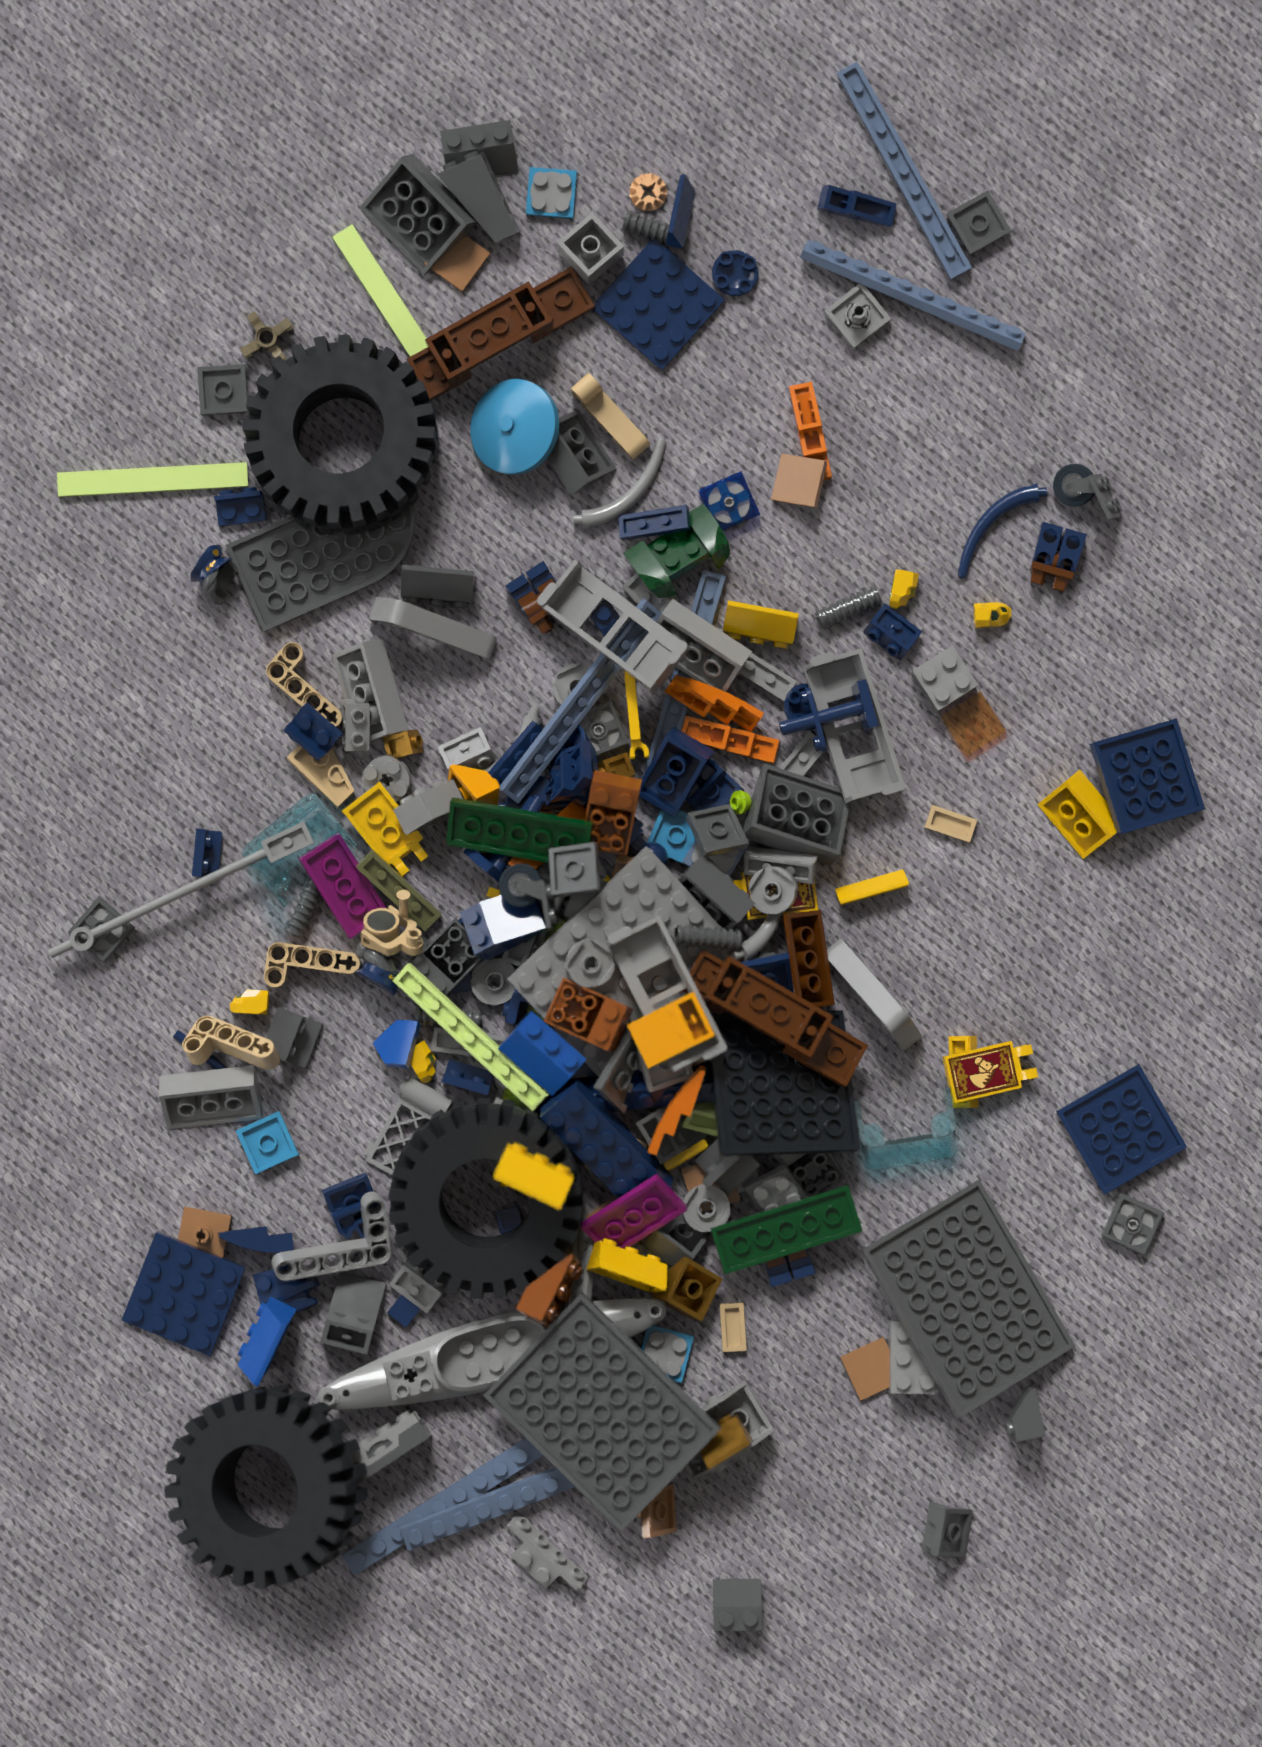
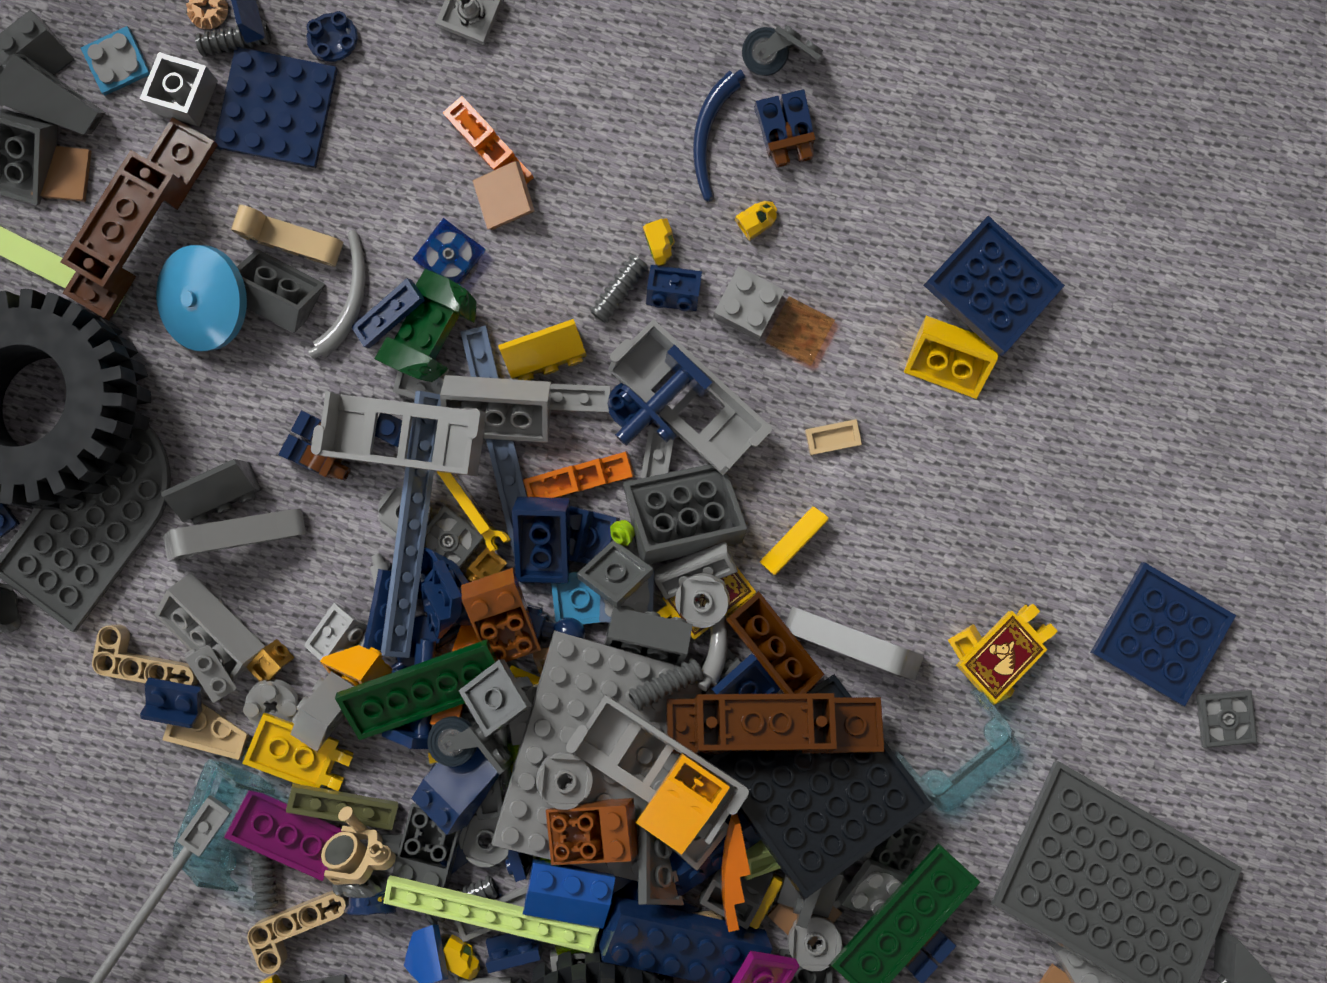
camera: 30 degrees left, 0 degrees up
(206, 852) = (135, 877): dark blue bracket -> none
(708, 699) = (532, 452): orange slope -> none

